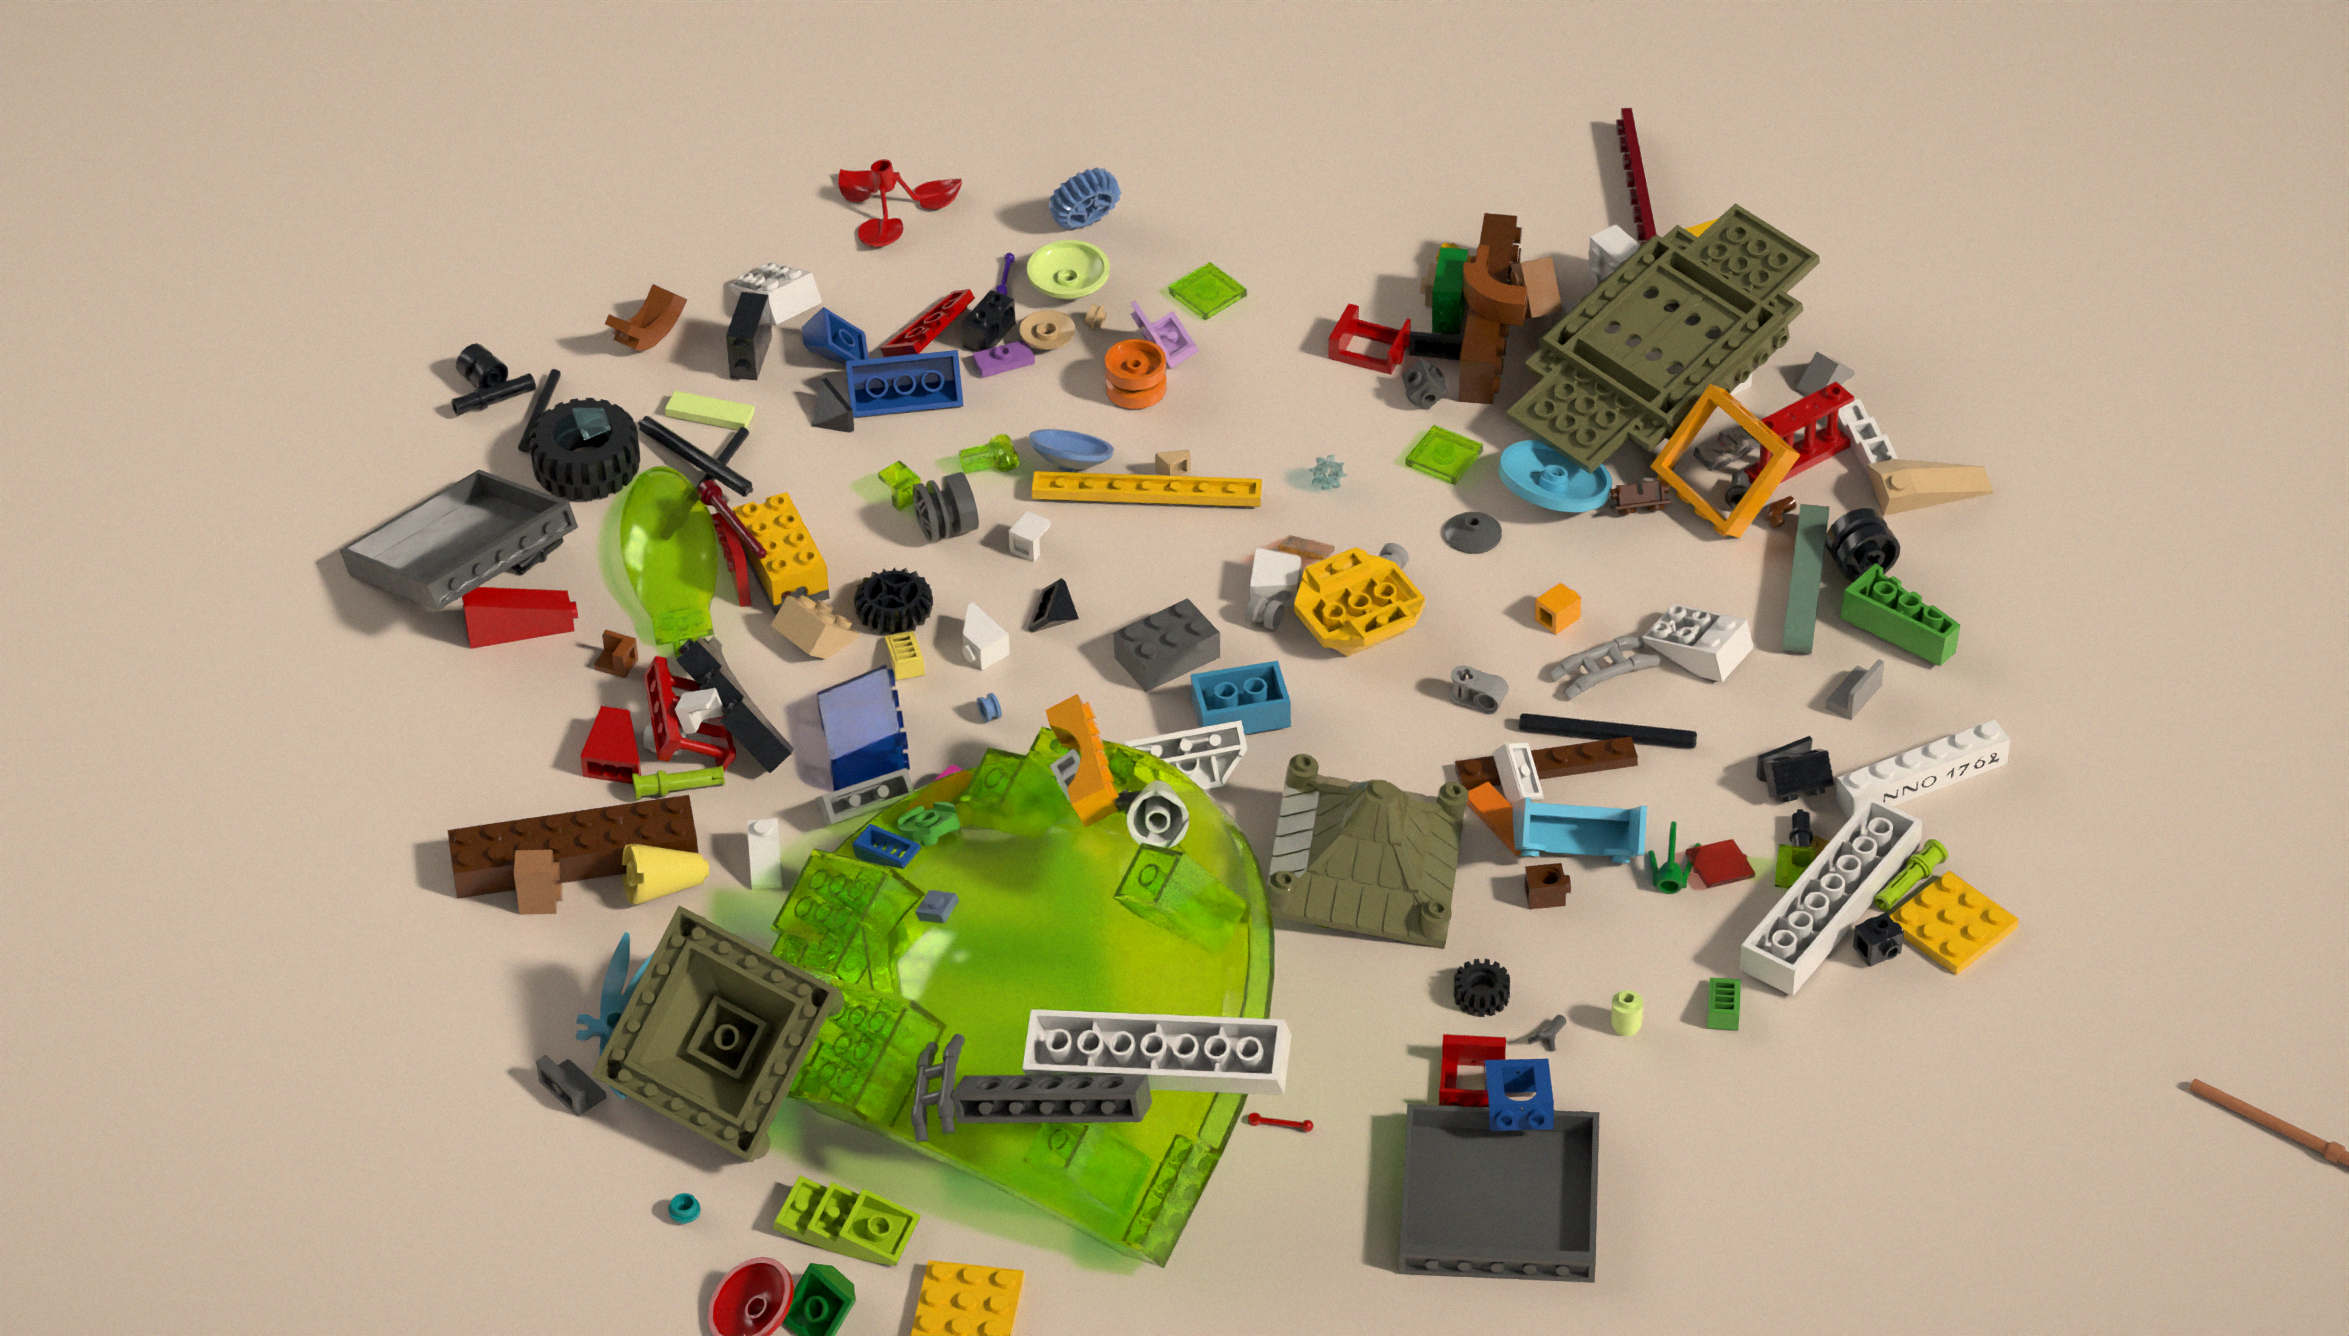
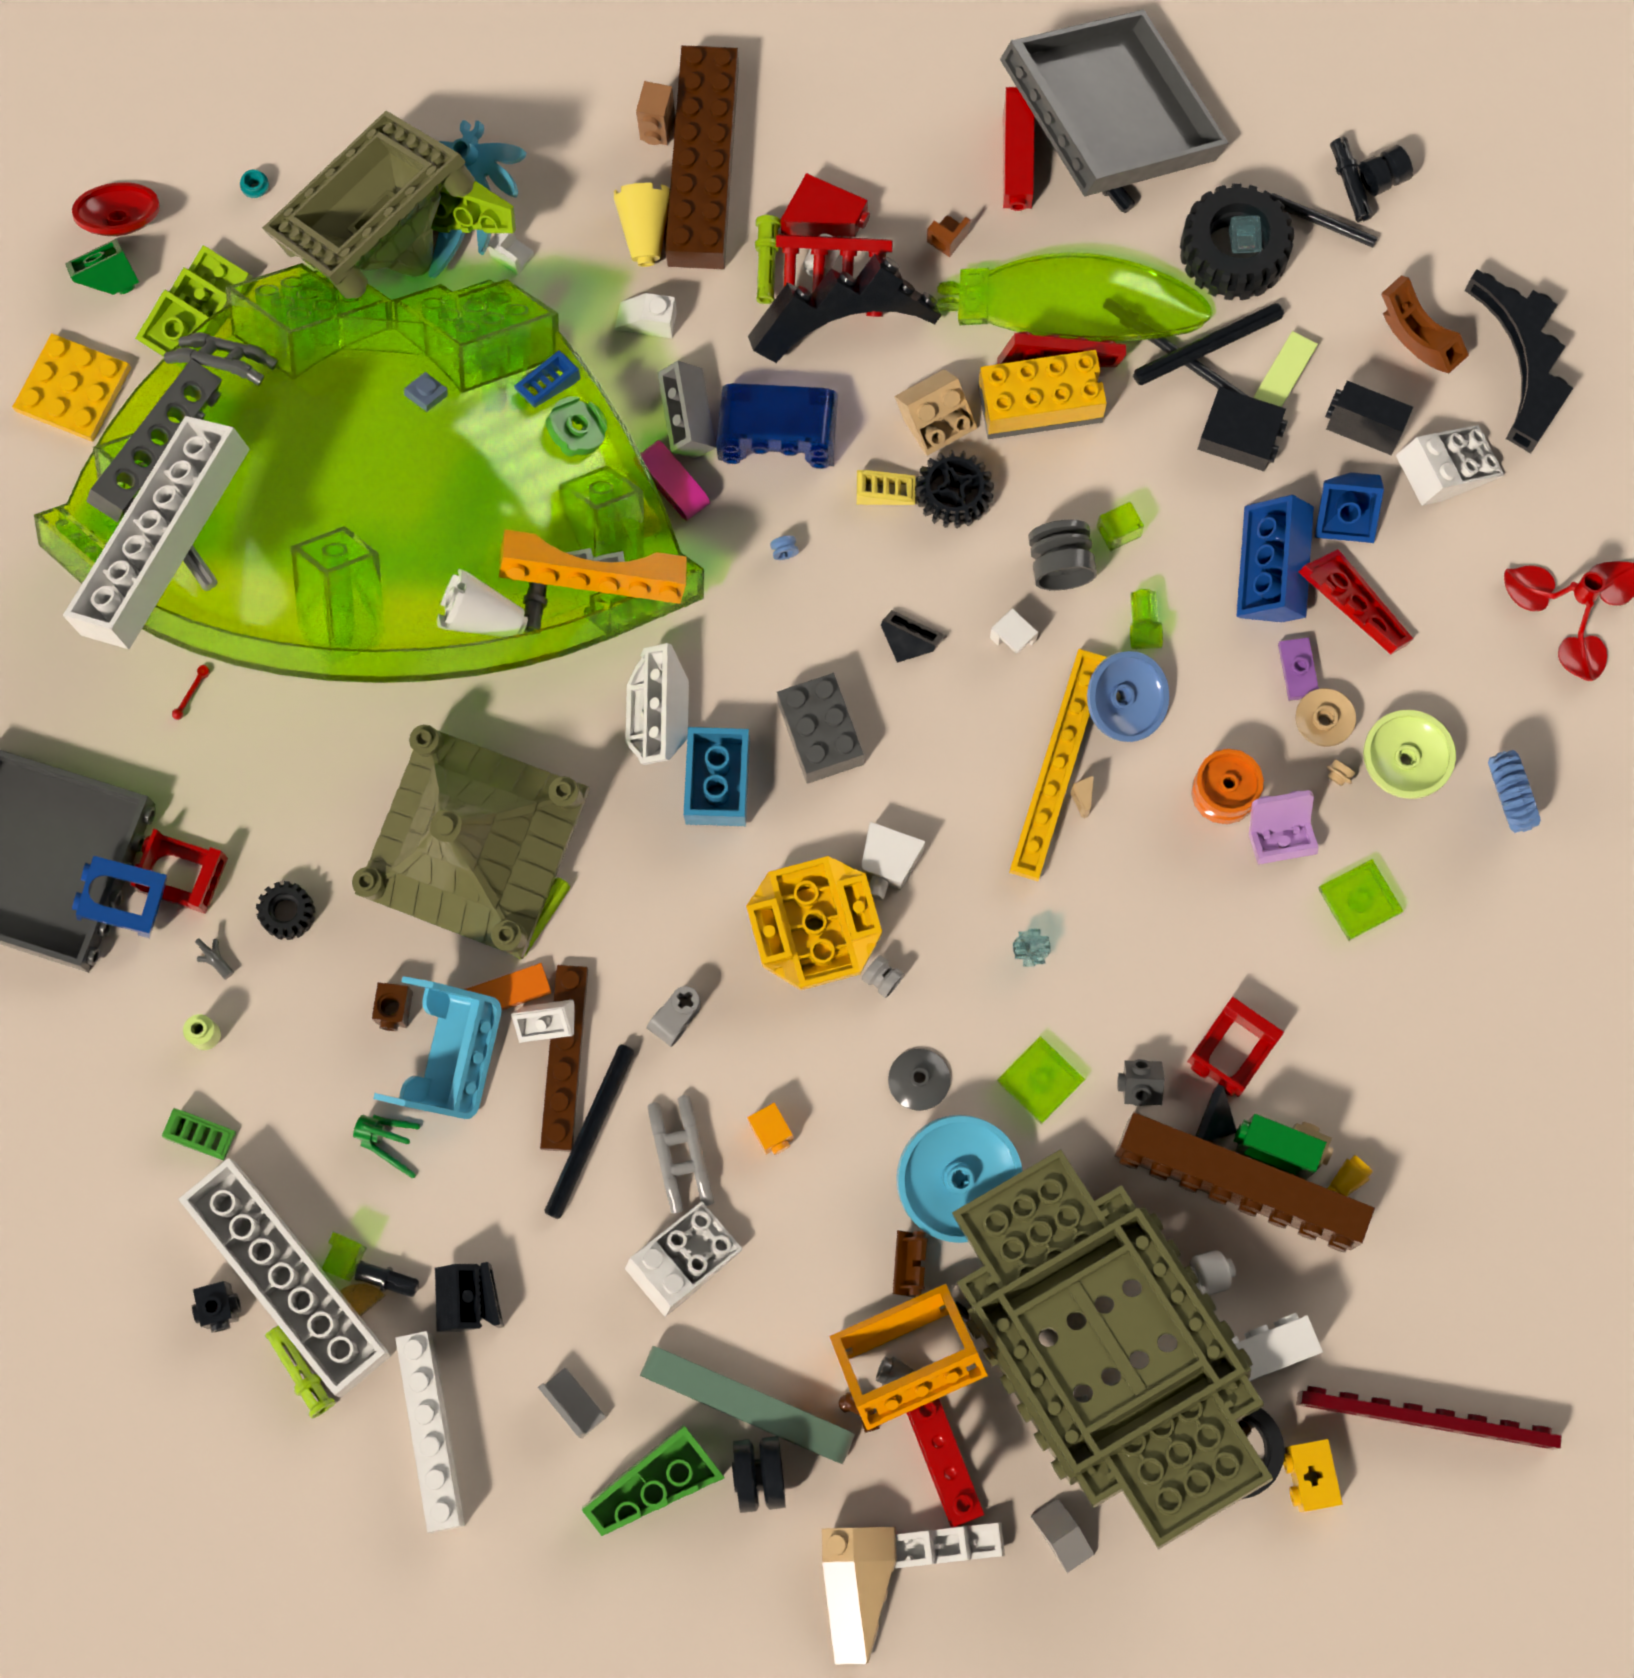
camera: 105 degrees right, 30 degrees up
(569, 1085) = (427, 111): dark grey panel -> none
(653, 251) = (1536, 353): none -> black arch
(697, 706) = (812, 263): white panel -> none
(711, 495) = (1129, 338): dark red piece -> none
(777, 423) = (1243, 429): none -> black brick
(832, 410) = (1254, 485): black slope -> none
(983, 639) = (881, 558): white slope -> none
(988, 322) = (1348, 660): black brick -> none
(1009, 258) = (1412, 691): dark purple hinge -> none
(1264, 611) = (845, 835): light grey wheel -> none
(1306, 548) = (923, 897): clear orange piece -> none
(1489, 297) = (1232, 1156): dark orange arch -> none
(1541, 285) = (1245, 1231): medium nougat slope -> none
(1720, 863) = (378, 1187): clear red piece -> none
(1728, 448) = (980, 1397): clear slope -> none
(1953, 922) = (230, 1395): yellow plate -> none

